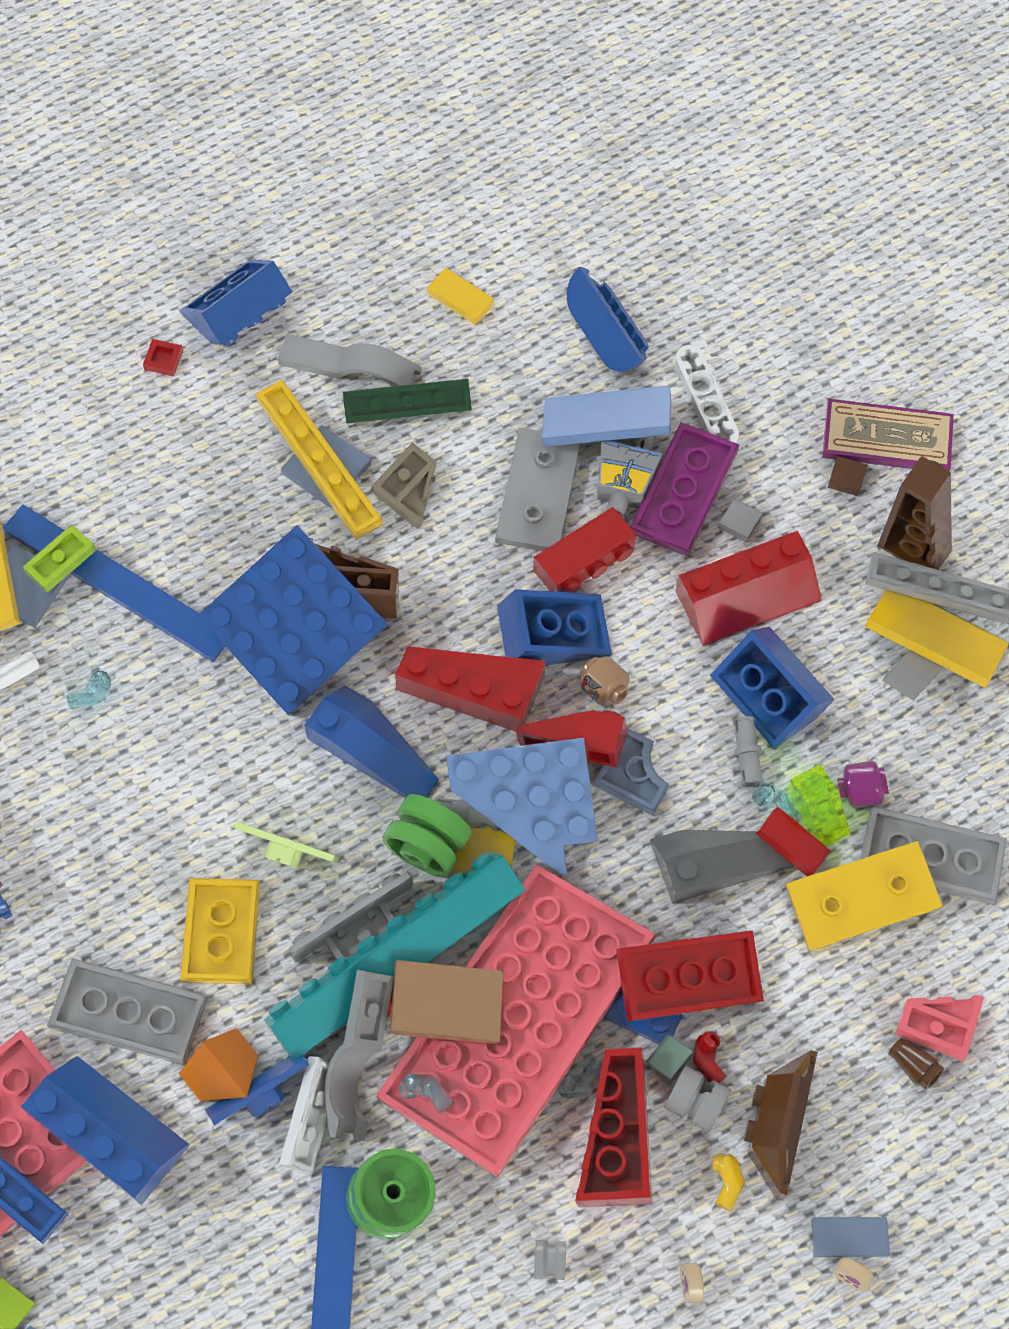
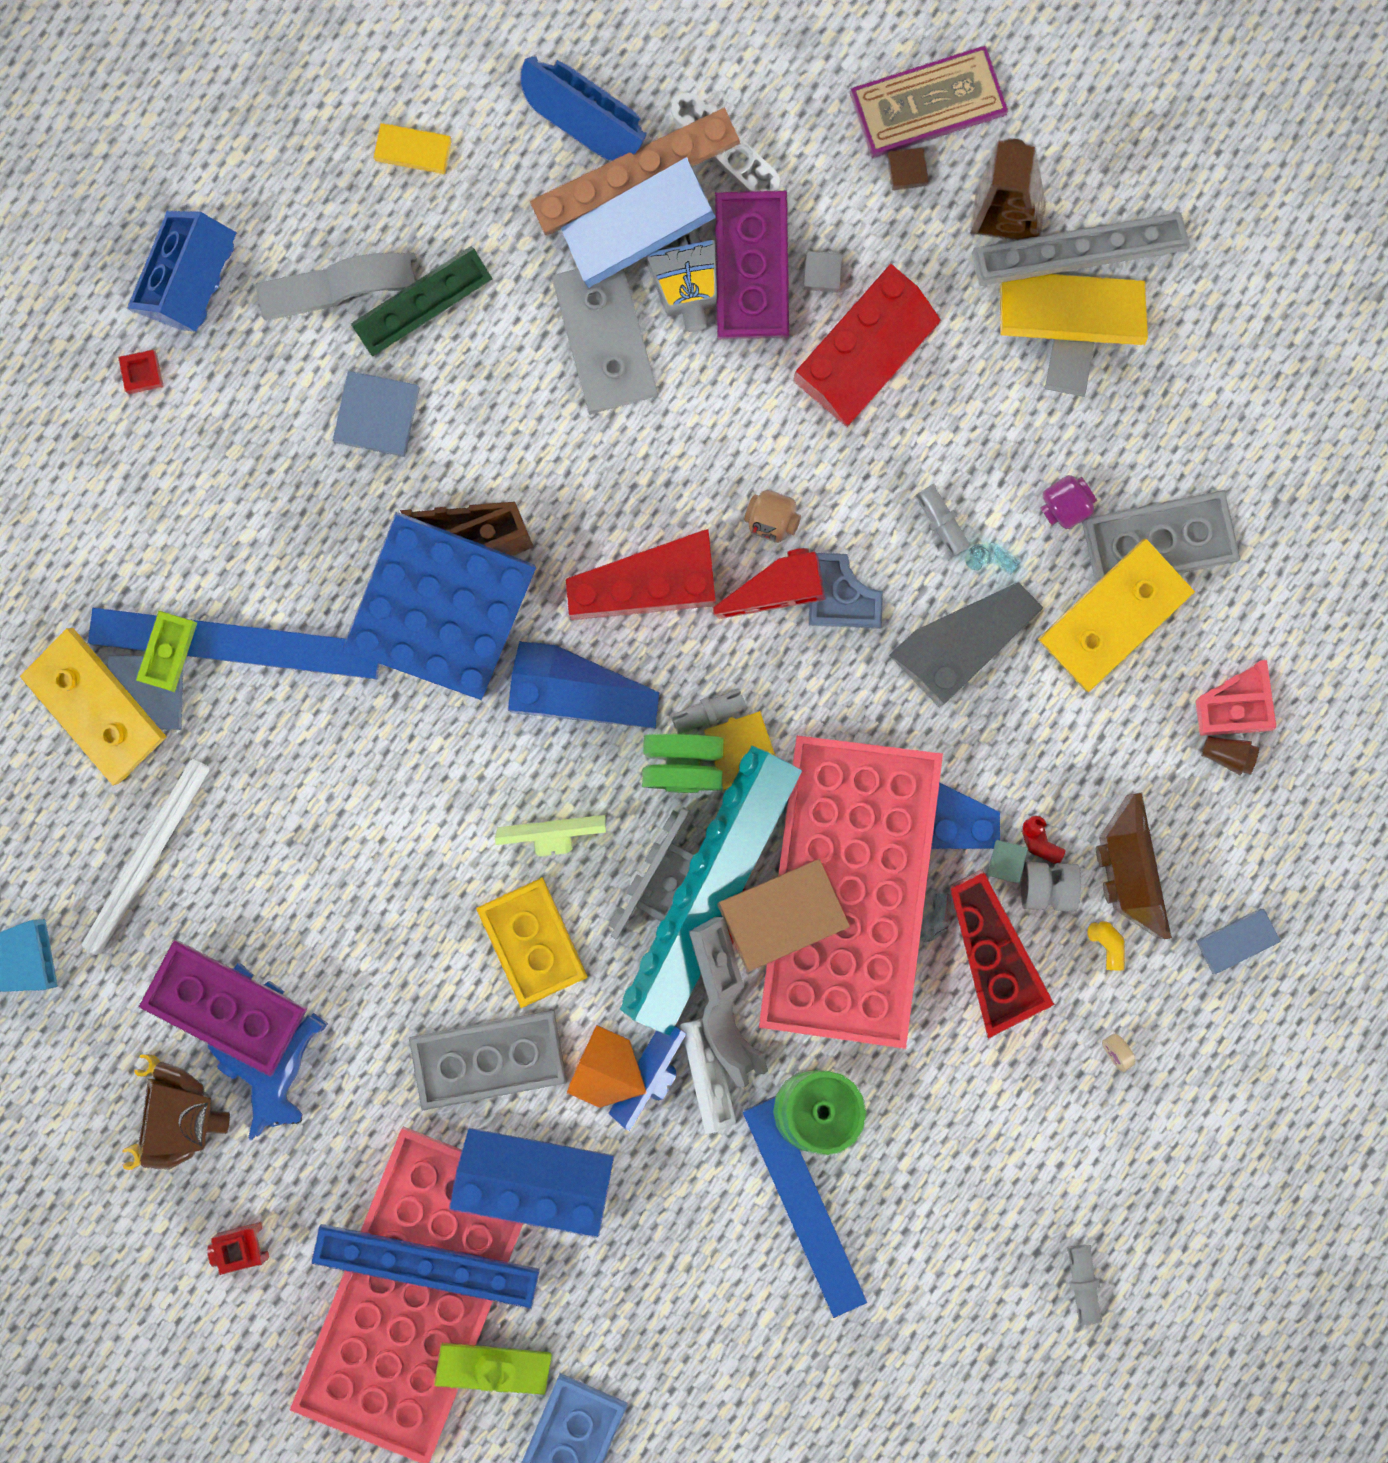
camera: 25 degrees left, 20 degrees up
(93, 693) = (278, 769): clear light blue arm -> none
(319, 460) = (366, 412): yellow tile -> none
(407, 484) = (470, 395): dark tan wing -> none
(424, 1085) = (803, 1000): clear light blue arm -> none
(531, 794) = (760, 671): medium blue wing -> none
(550, 1260) = (986, 1094): light grey wheel -> none
(553, 626) = (694, 483): blue slope -> none
(585, 552) = (687, 386): red brick -> none
(684, 380) = (577, 197): none -> nougat plate
(689, 975) = (992, 777): red plate -> none
(771, 686) = (936, 441): blue slope -> none
(793, 842) = (1026, 593): red tile -> none
(819, 805) = (1036, 545): clear neon green slope -> none
(854, 1274) = (1257, 974): tan tile -> none

